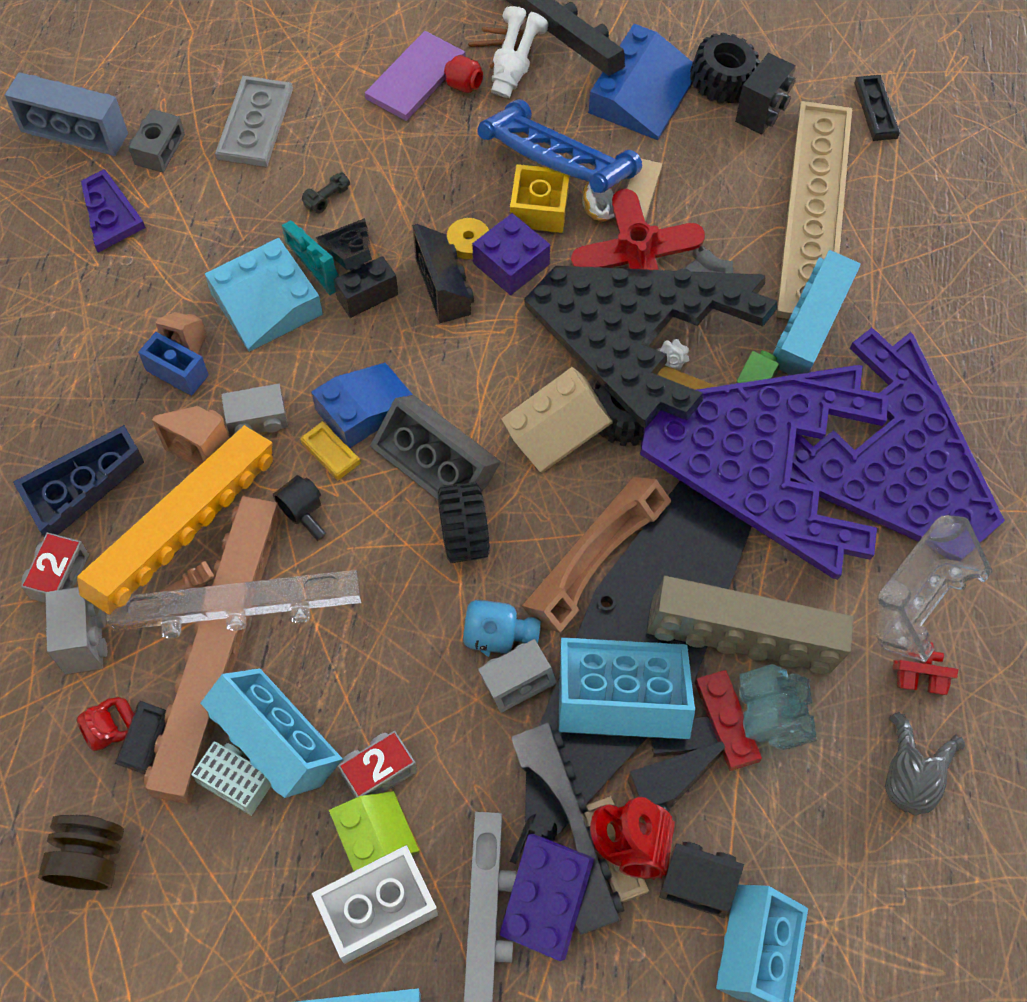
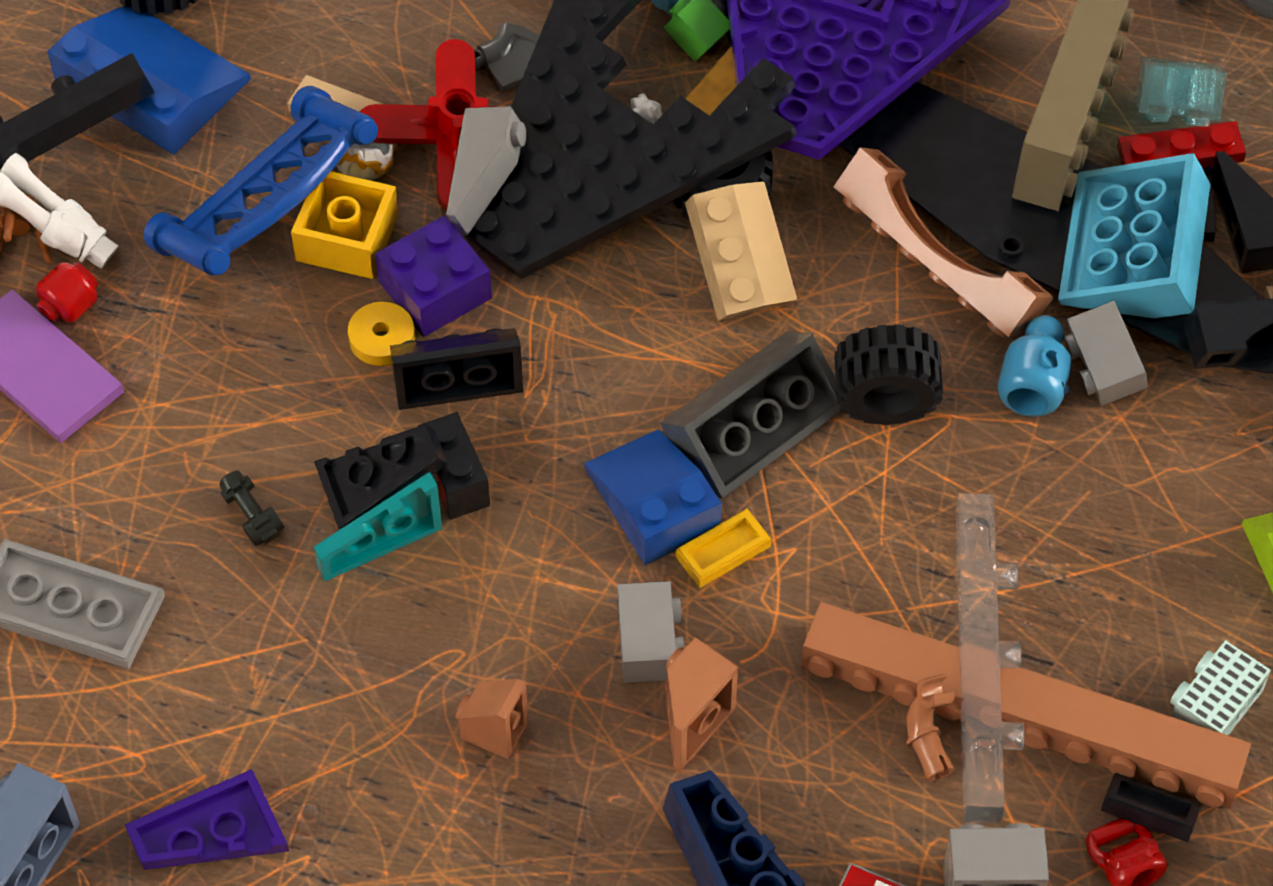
camera: 80 degrees left, 5 degrees down
(156, 140) = (66, 725): dark grey brick -> none
(173, 363) = (549, 730): blue brick -> none
(174, 521) = (851, 720): light orange brick -> none
(264, 294) = (437, 603): medium azure slope -> none
(271, 732) = (1172, 629): medium azure brick -> none
(298, 500) = (809, 579): black piece -> none
(377, 766) = (1216, 527): brick -> none
(592, 256) = (484, 160): none -> light grey slope

